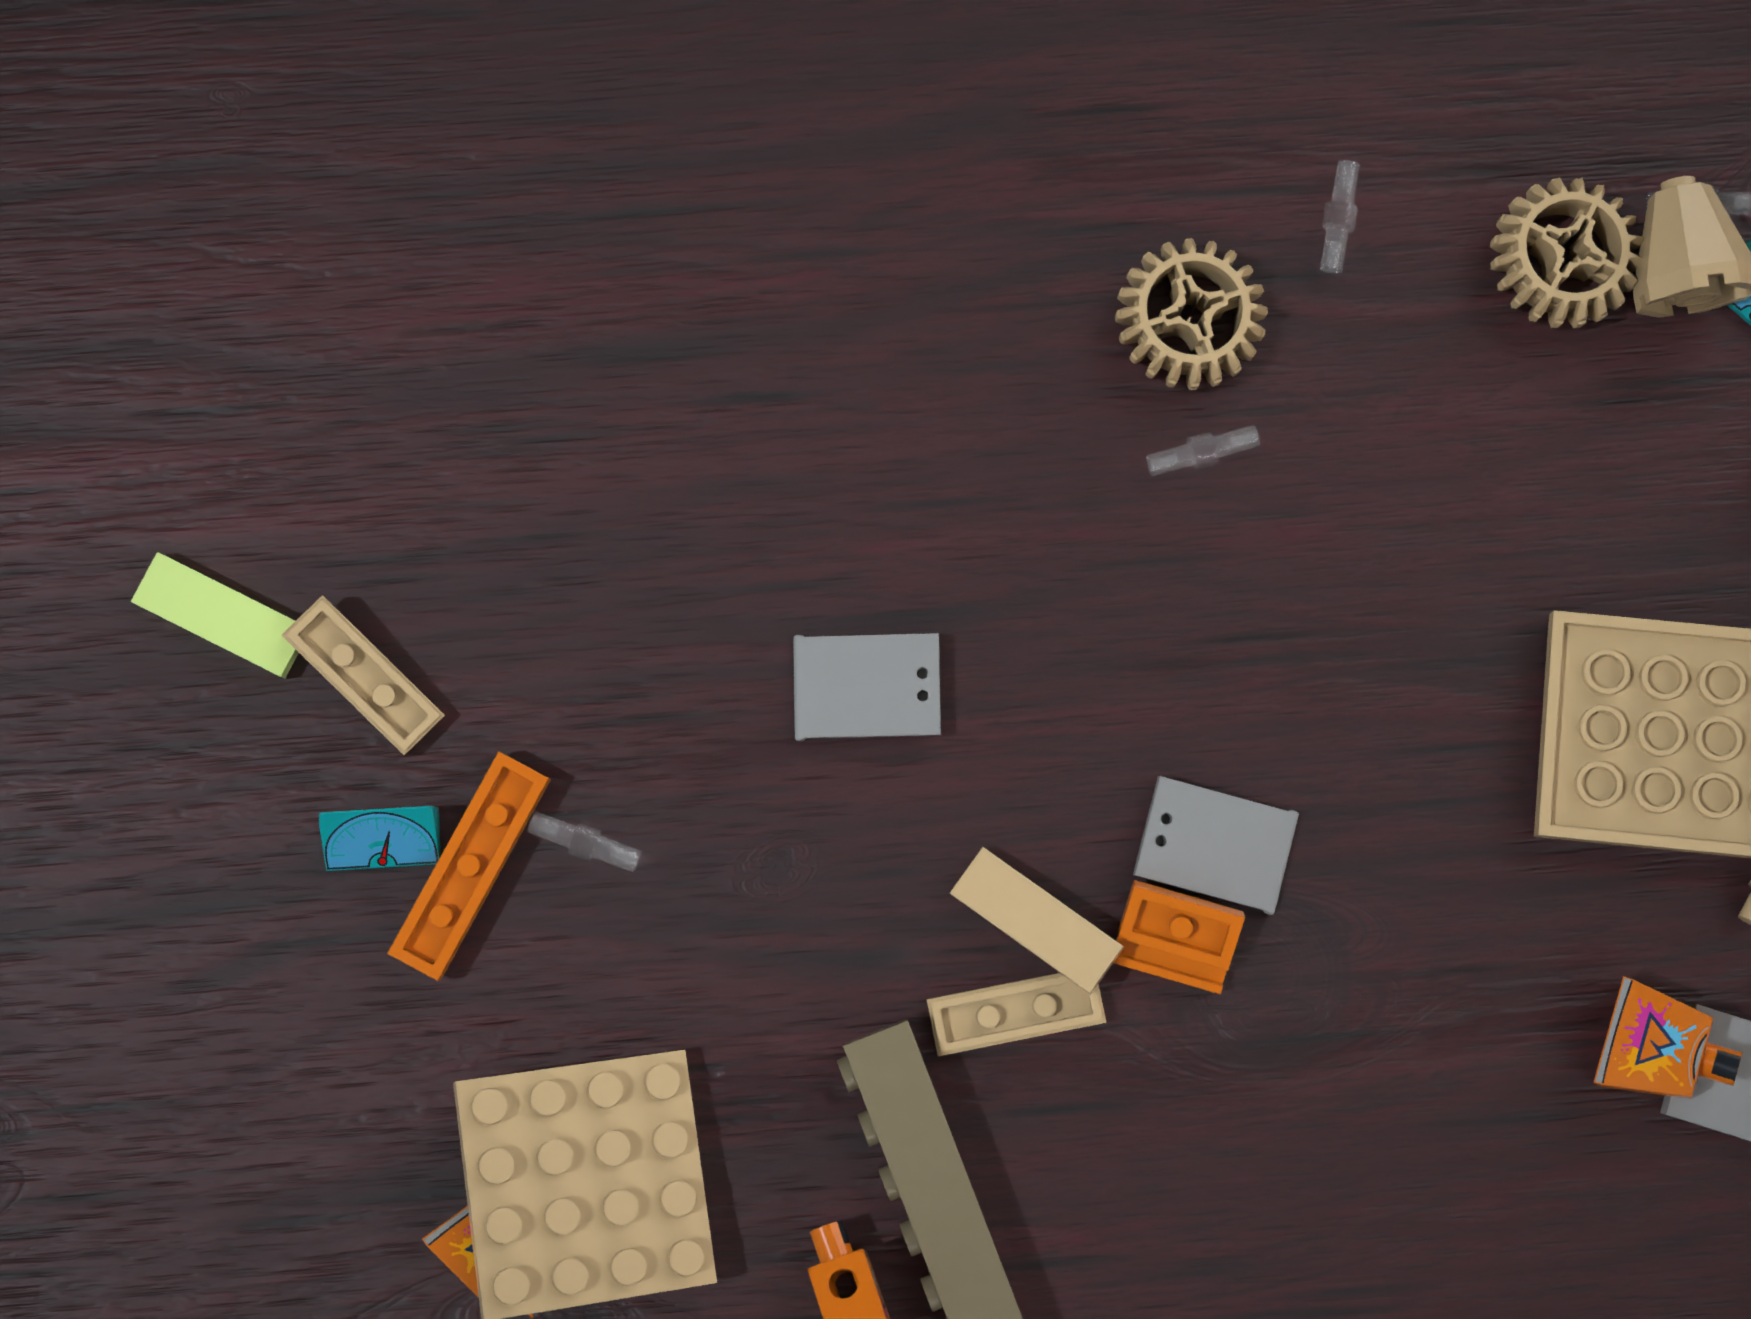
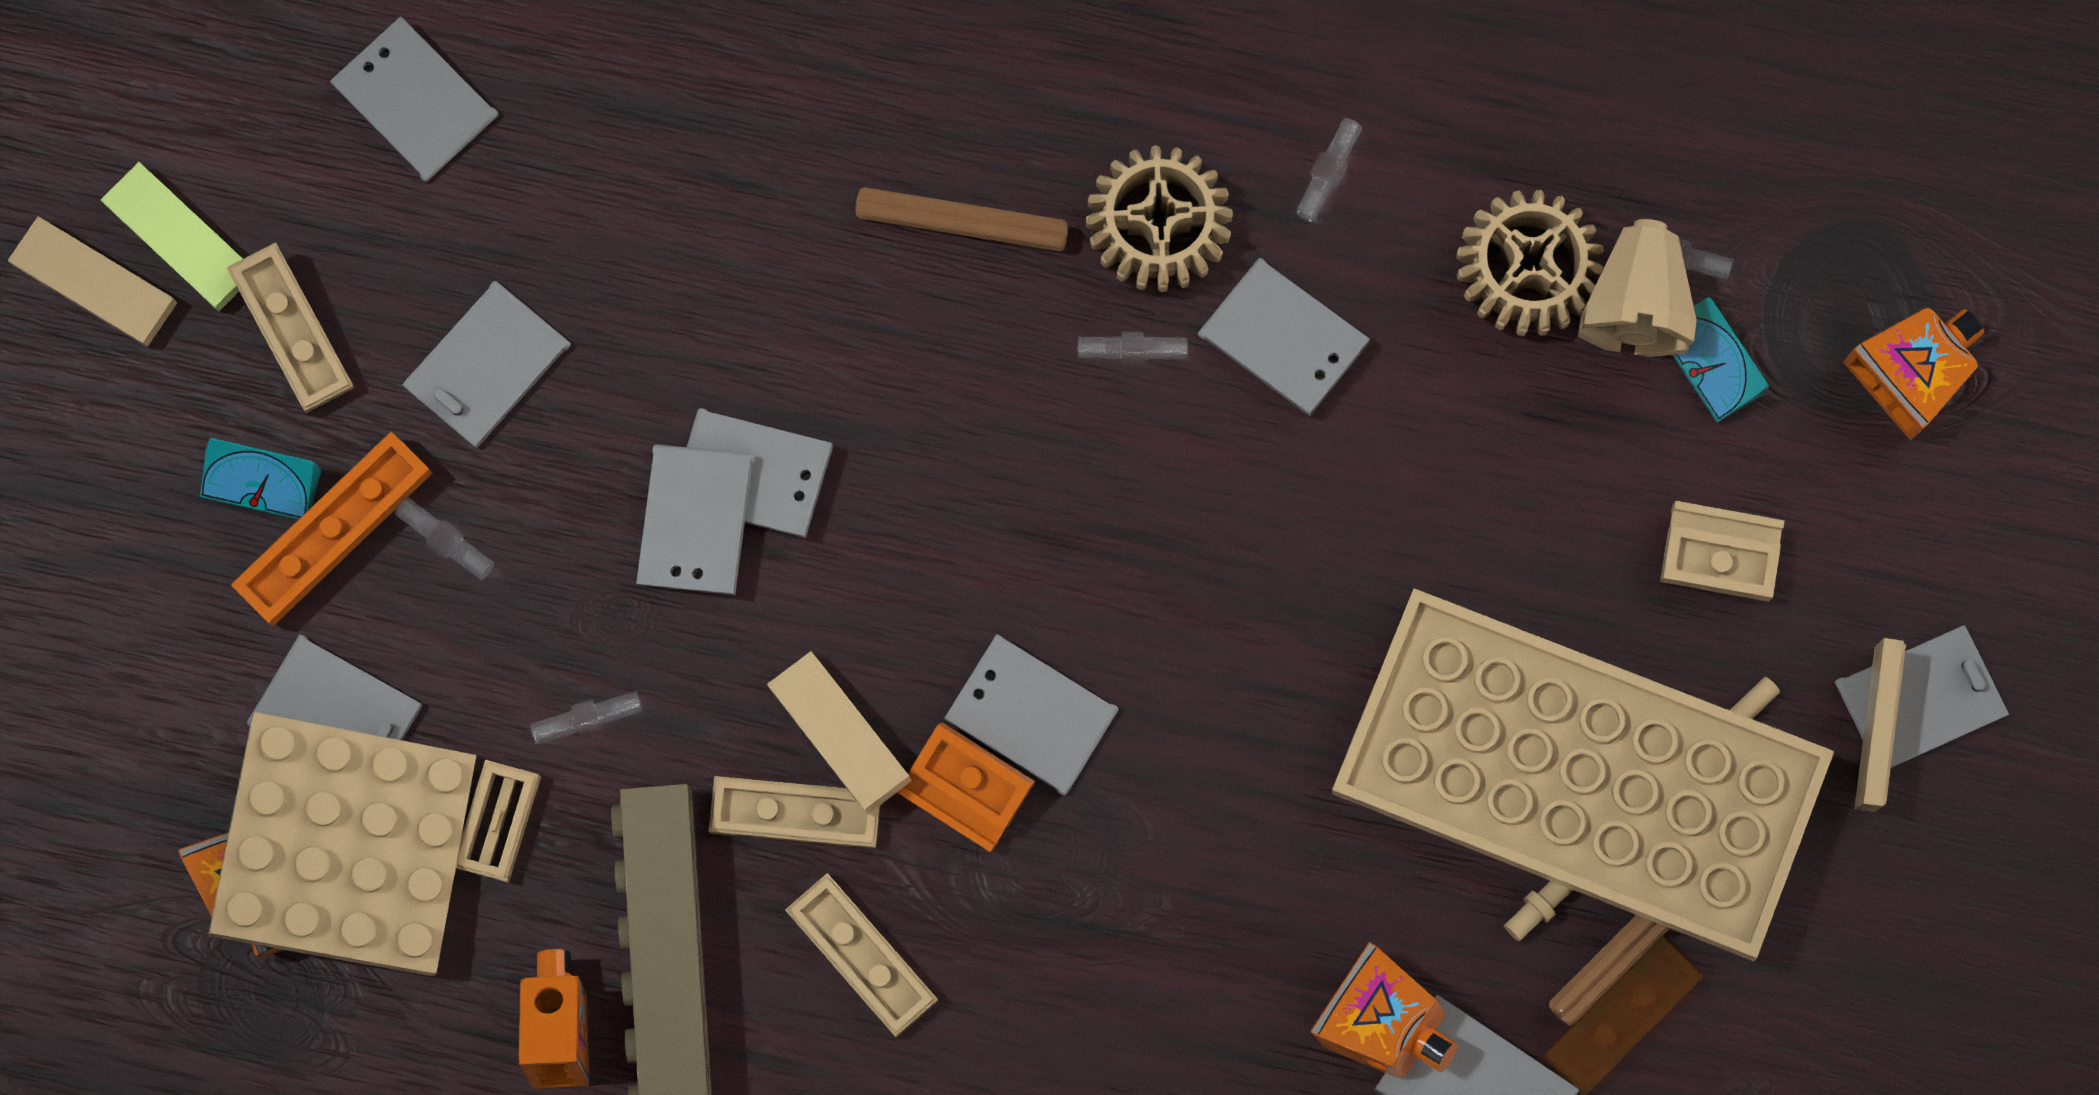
camera: 20 degrees right, 5 degrees down
(148, 686) = (92, 281): none -> tan tile
(412, 407) = (414, 98): none -> light grey container
(523, 1032) = (333, 693): none -> light grey container
(569, 653) = (486, 364): none -> light grey container
(724, 1058) = (519, 822): none -> tan tile
(781, 979) = (586, 717): none -> clear bar
(826, 749) = (694, 519): none -> light grey container
(995, 370) = (961, 219): none -> medium nougat axle
(1125, 1133) = (861, 955): none -> tan tile
(1346, 396) = (1284, 336): none -> light grey container

